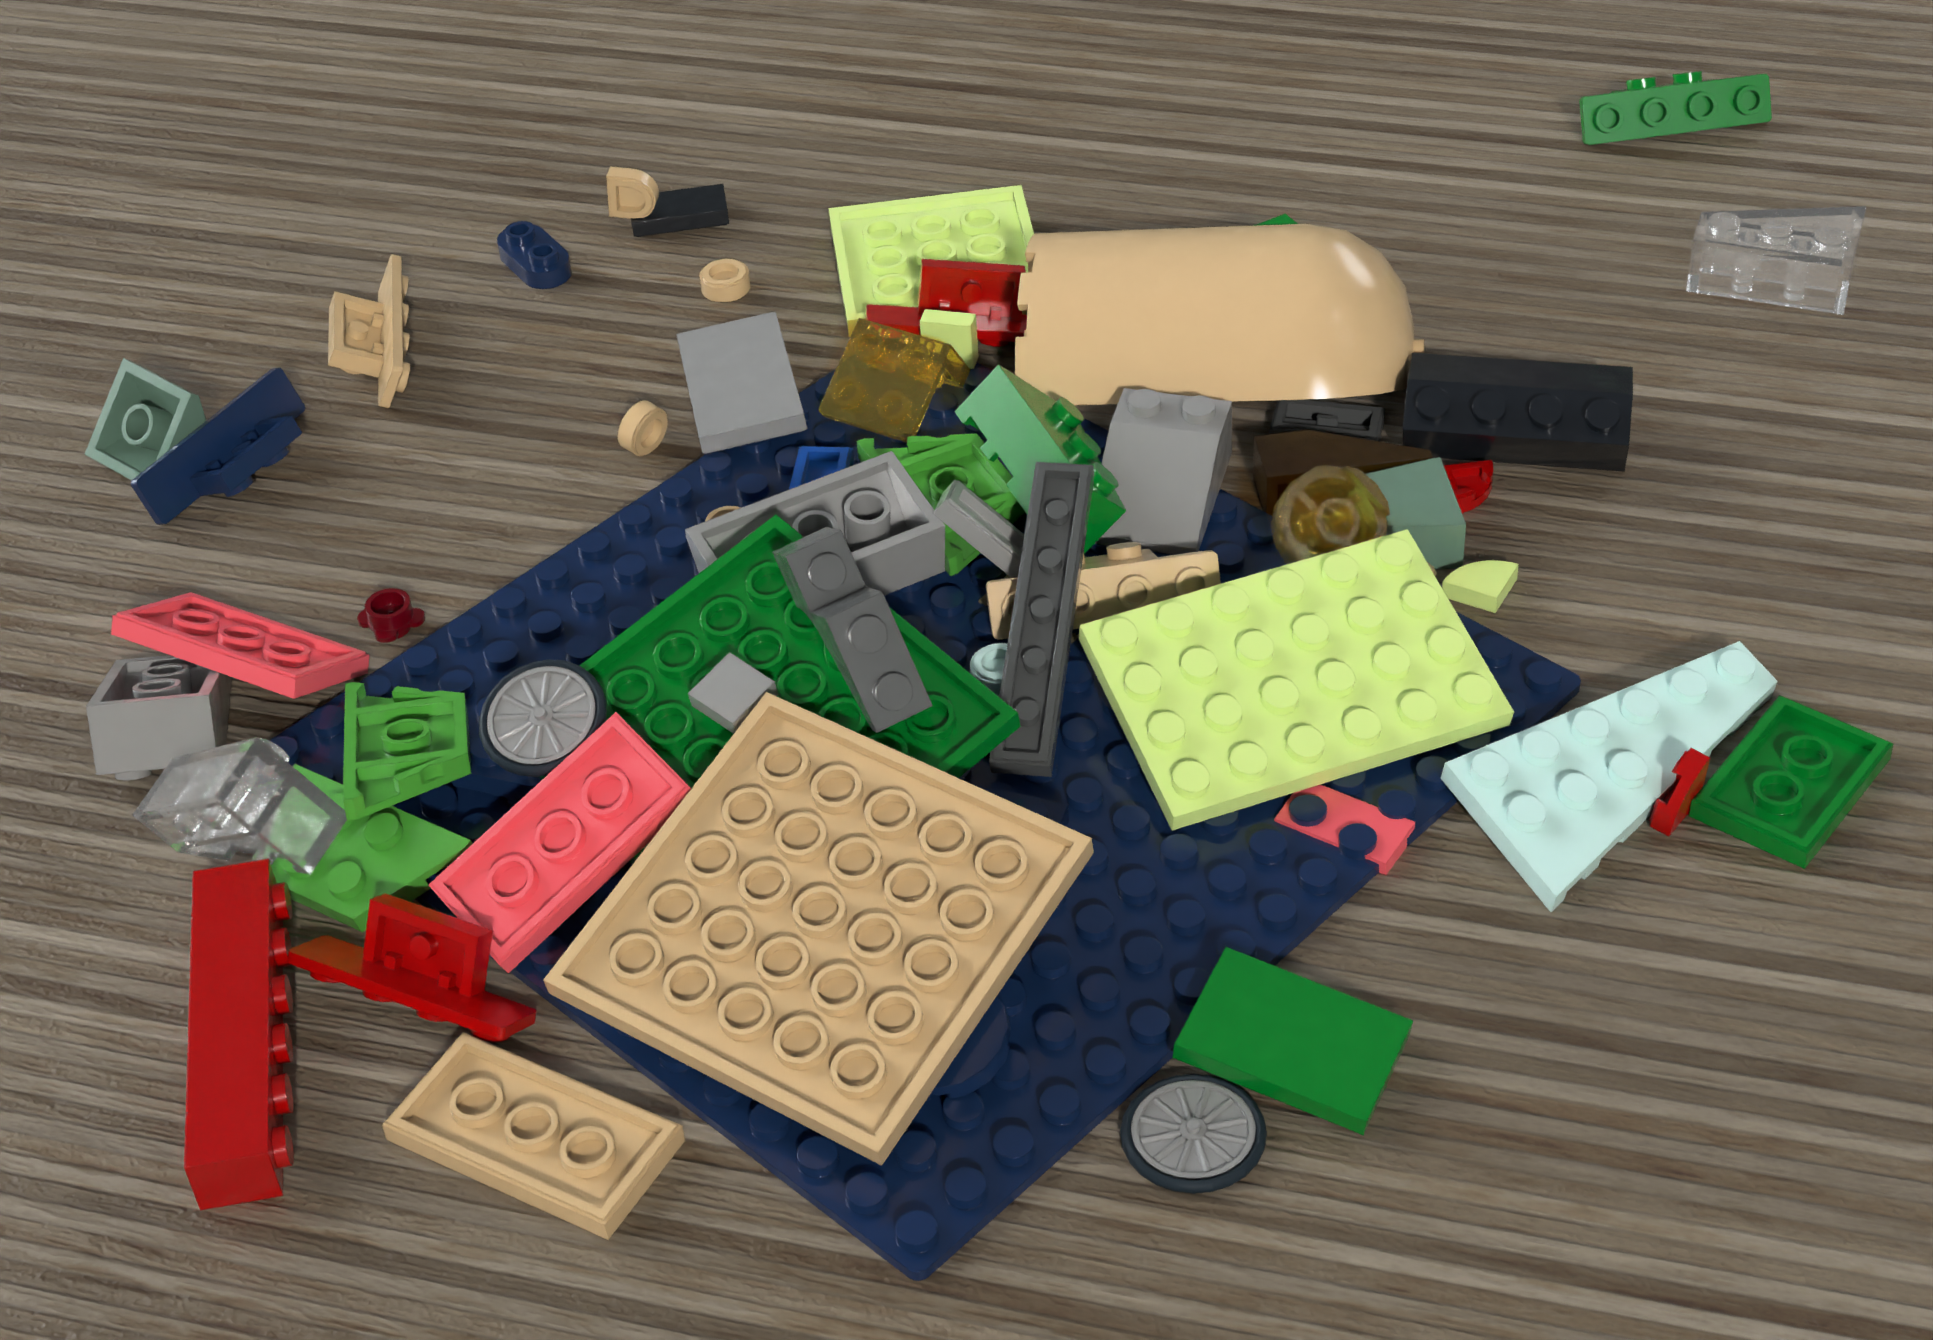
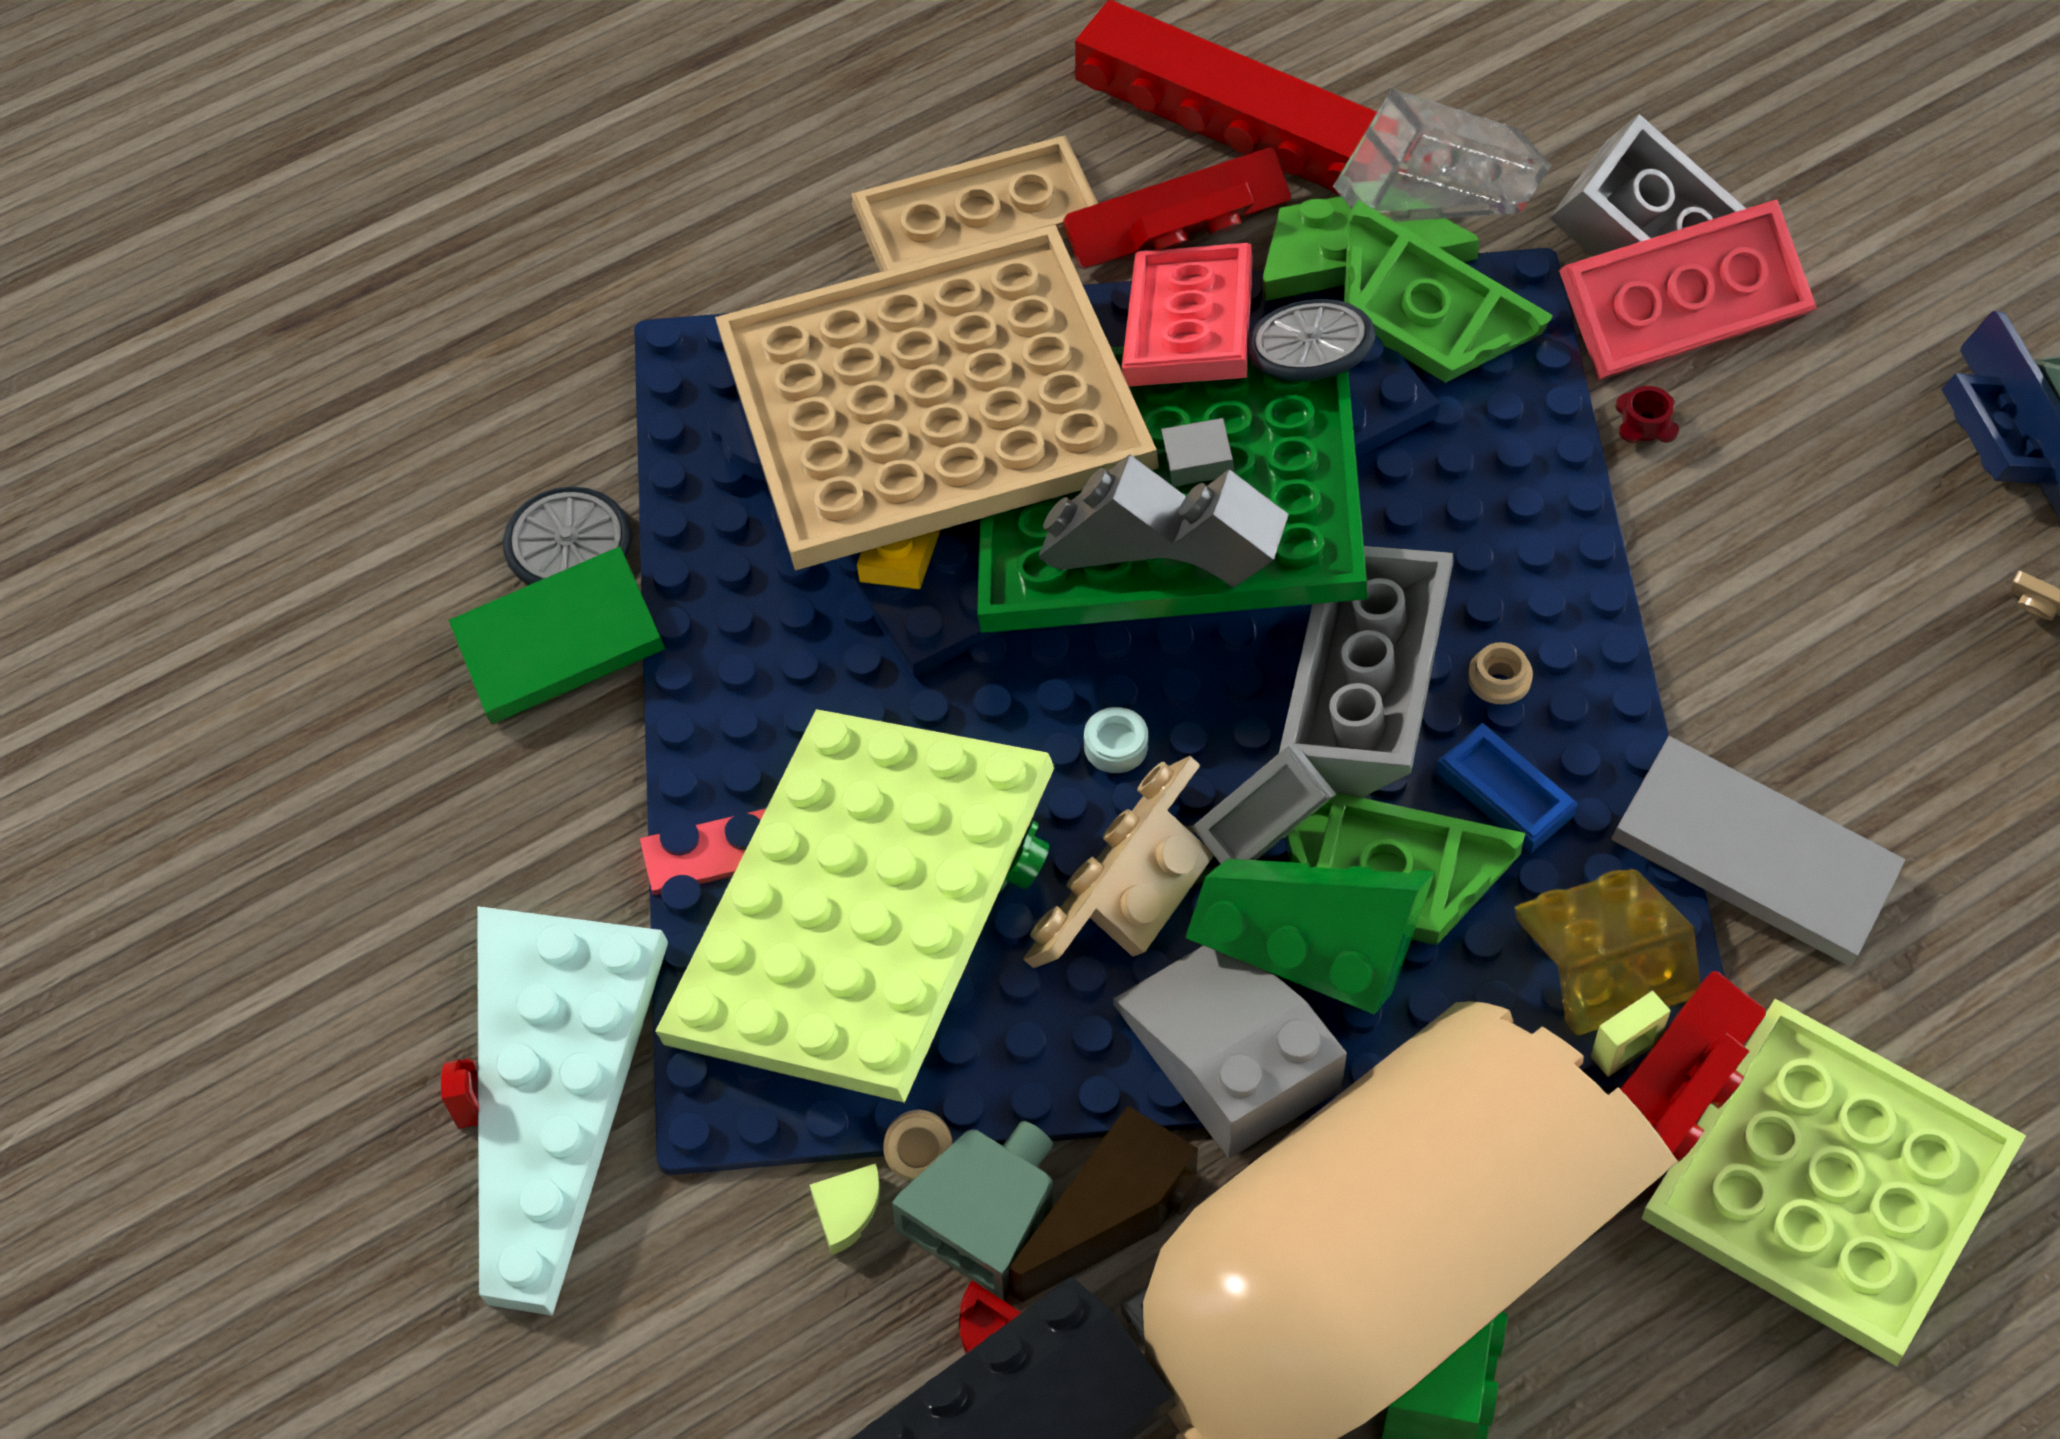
camera: 130 degrees right, 15 degrees up
(642, 428) = (1751, 728): tan tile -> none
(725, 280) = (1990, 980): tan tile -> none
(1044, 616) = (1112, 766): dark grey tile -> none
(1327, 512) = (992, 1067): clear yellow cylinder -> none
(1791, 781) = (390, 1206): green tile -> none

